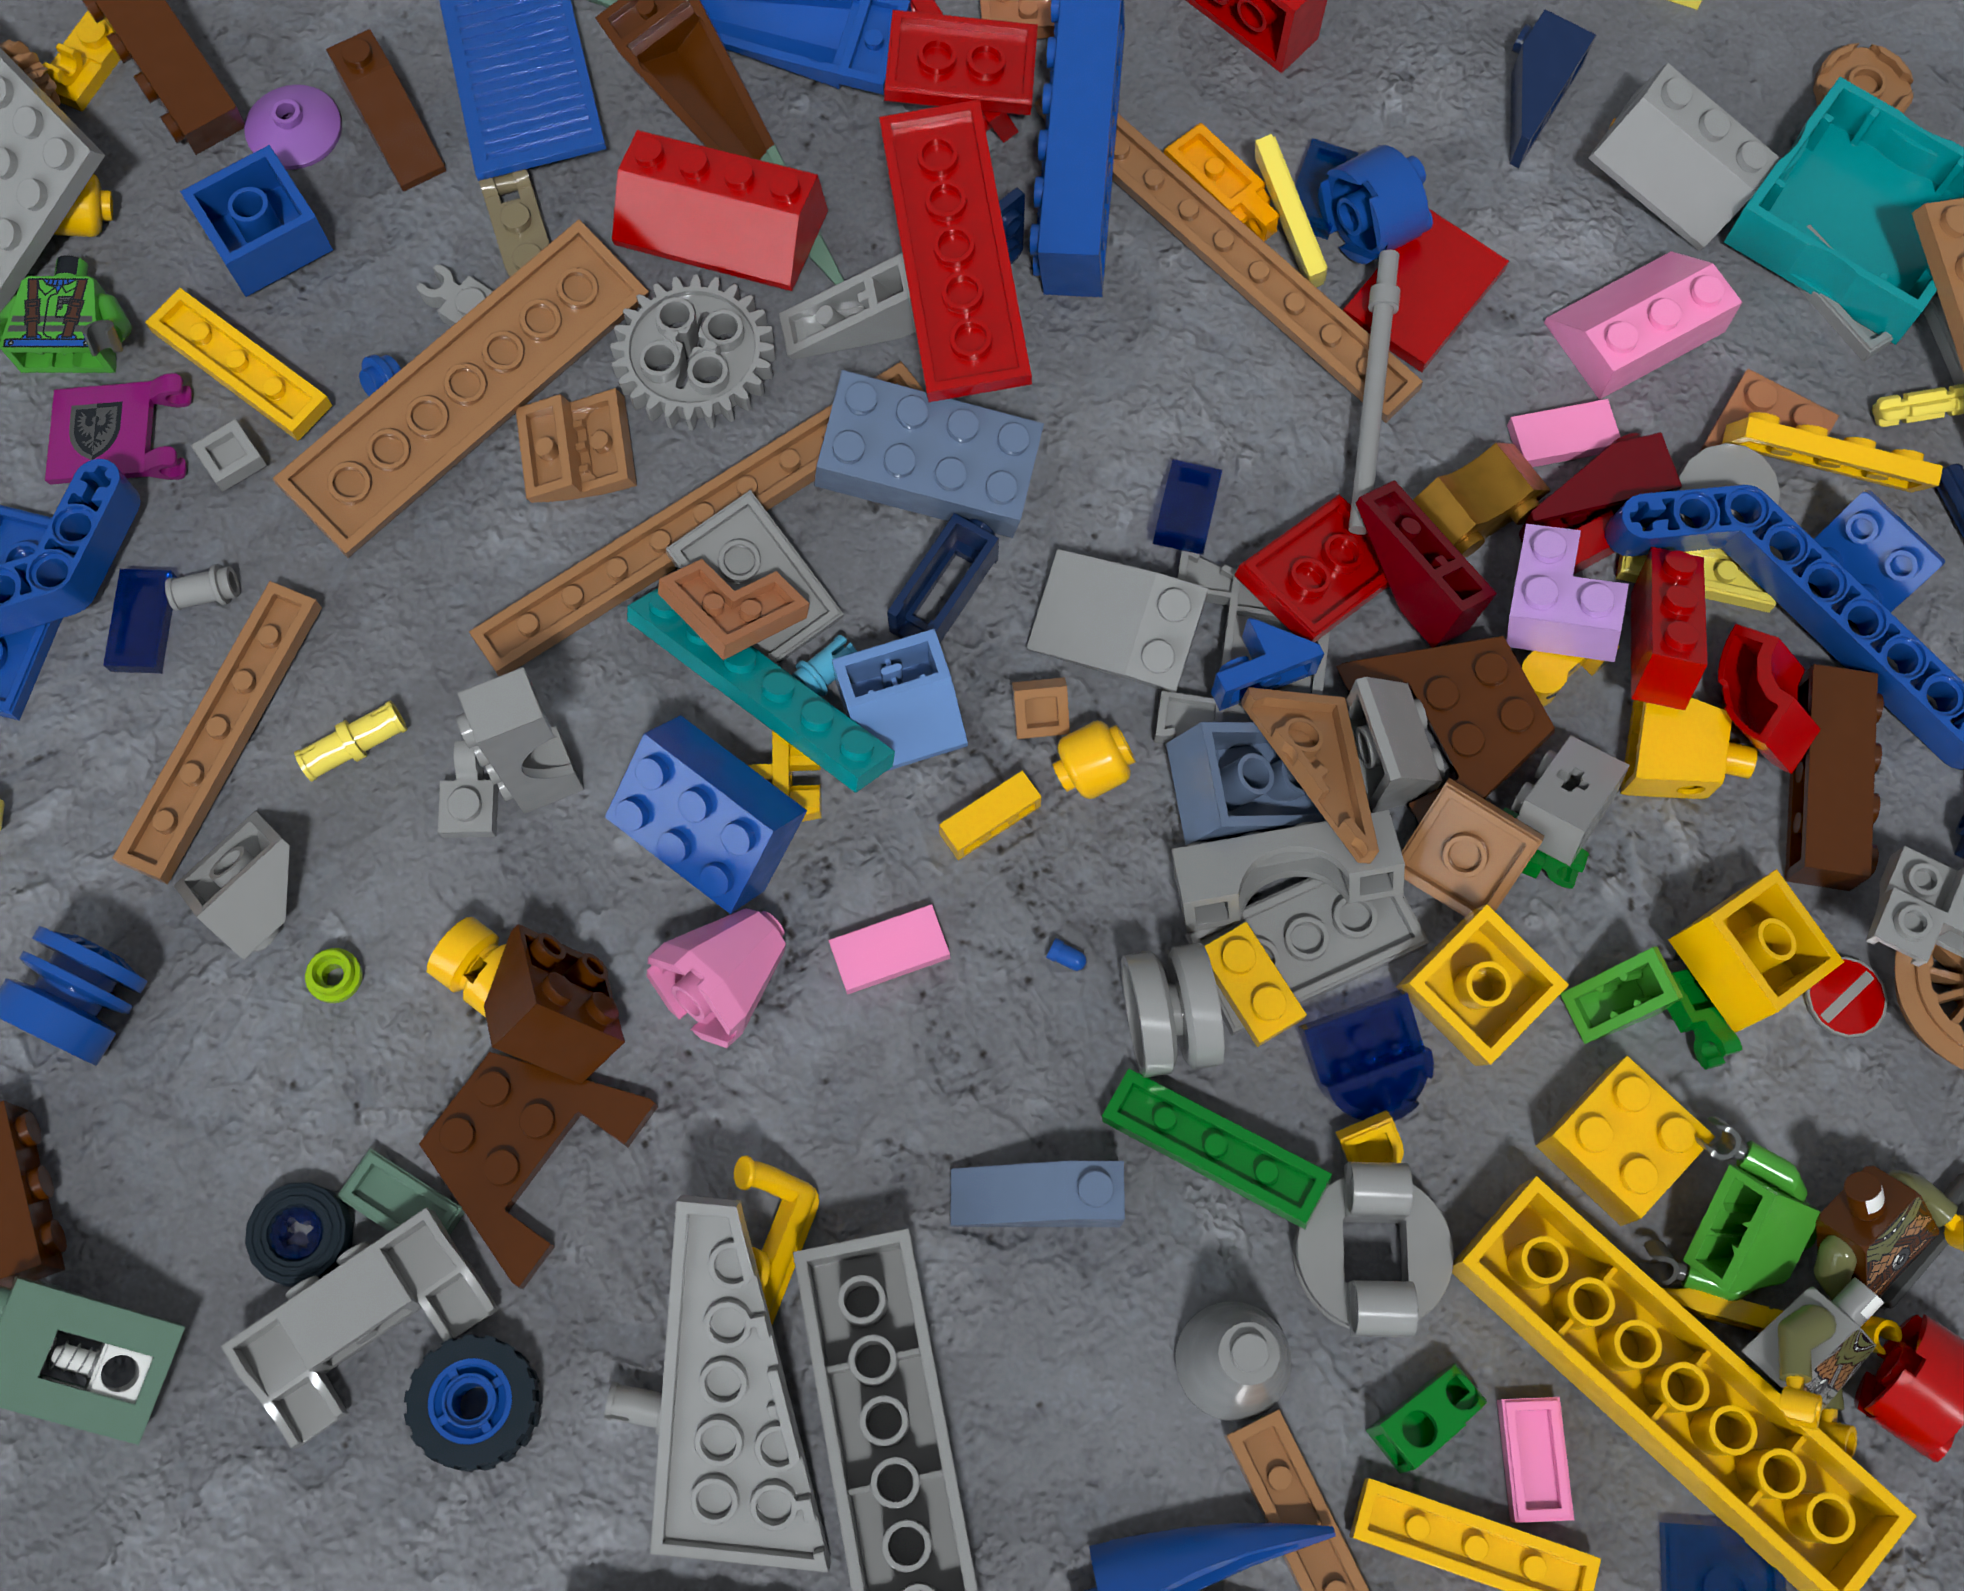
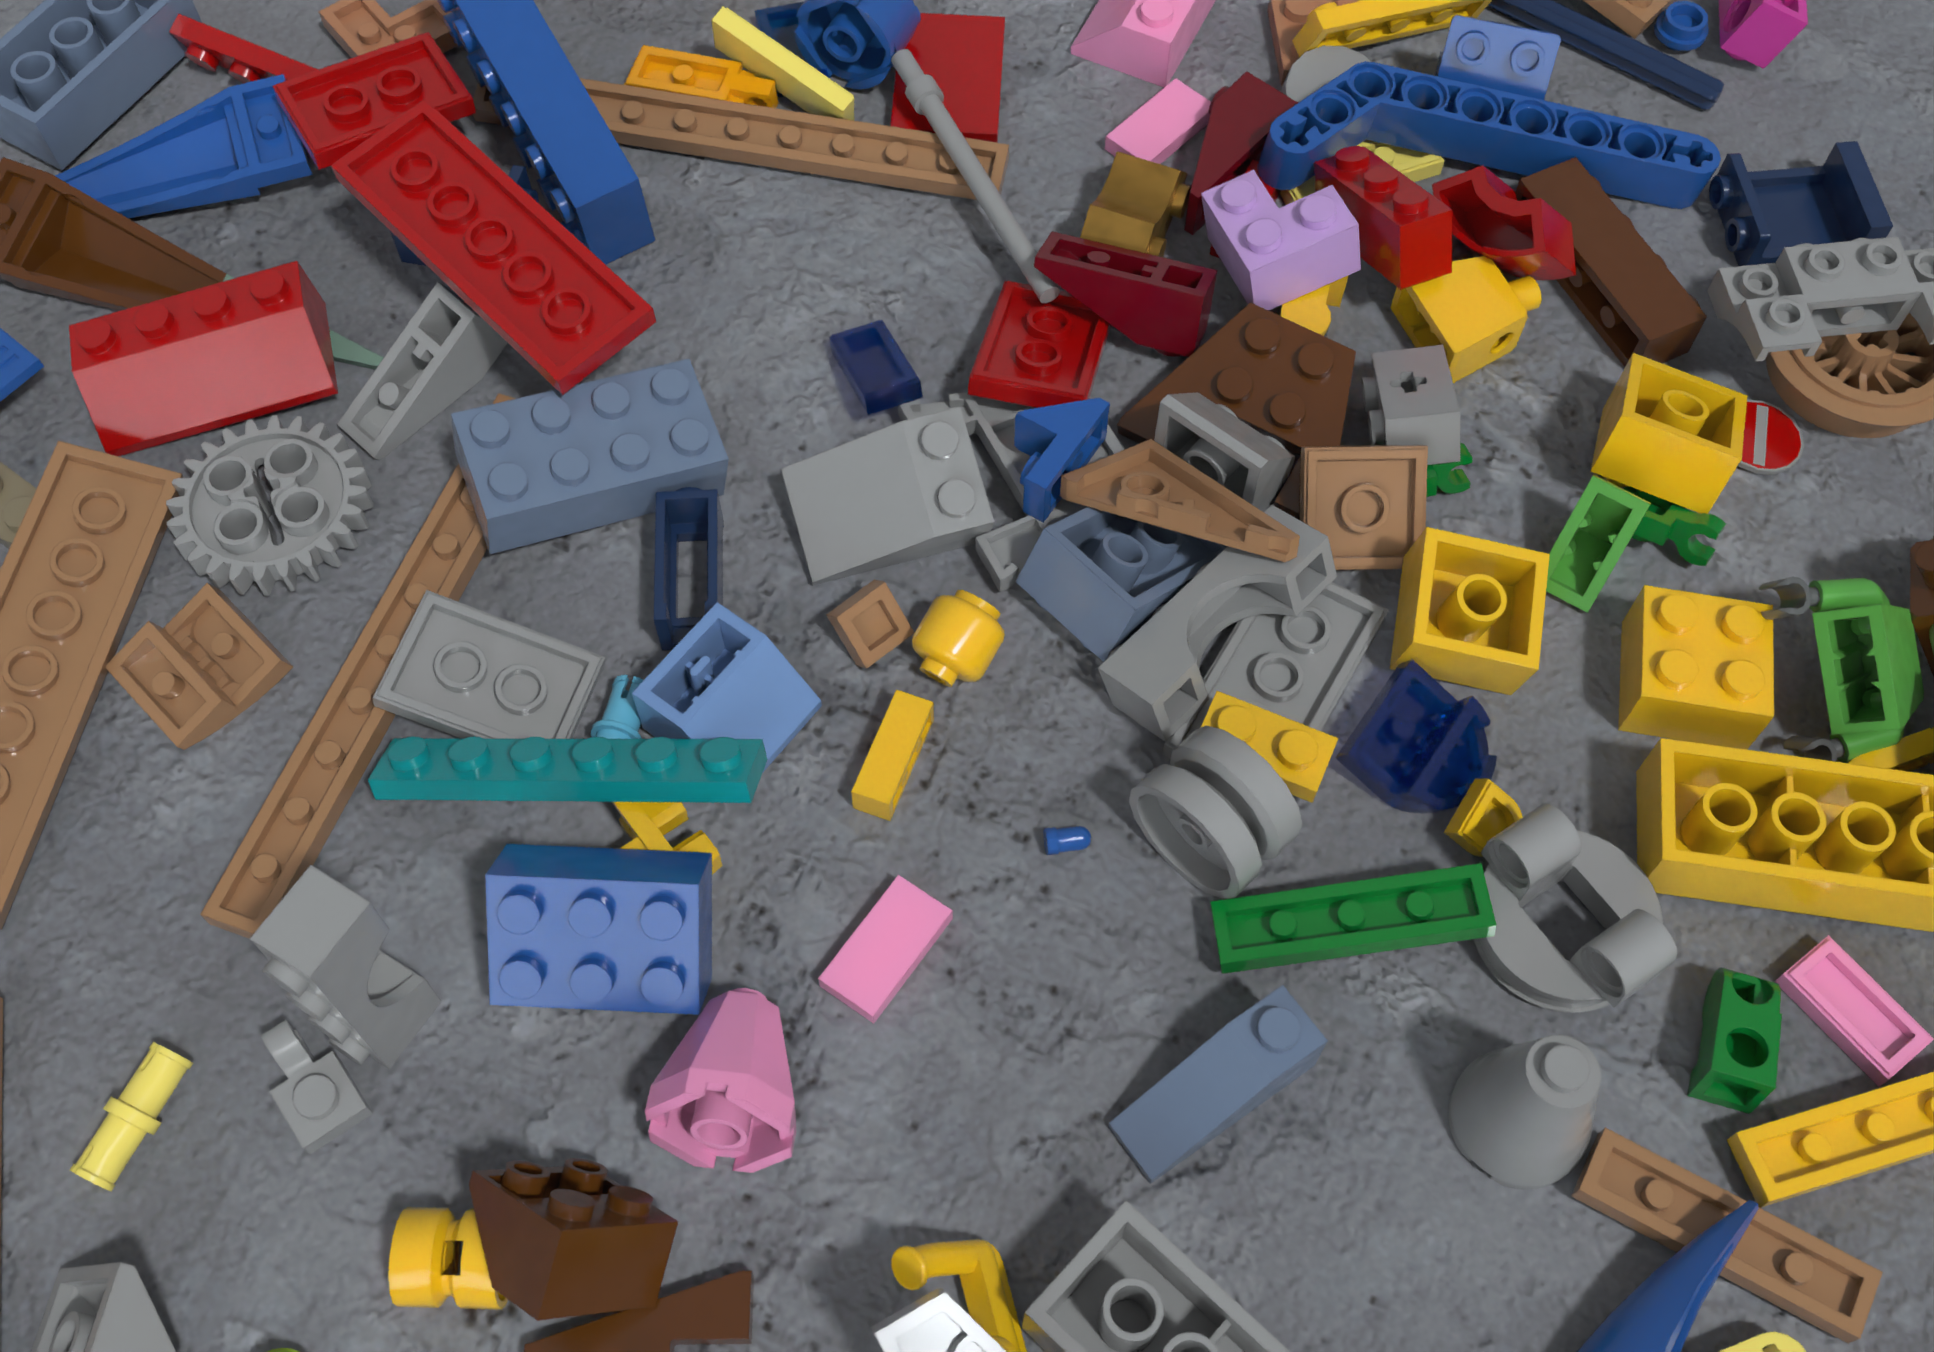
camera: 35 degrees left, 10 degrees down
(731, 618) = (489, 719): nougat plate -> none

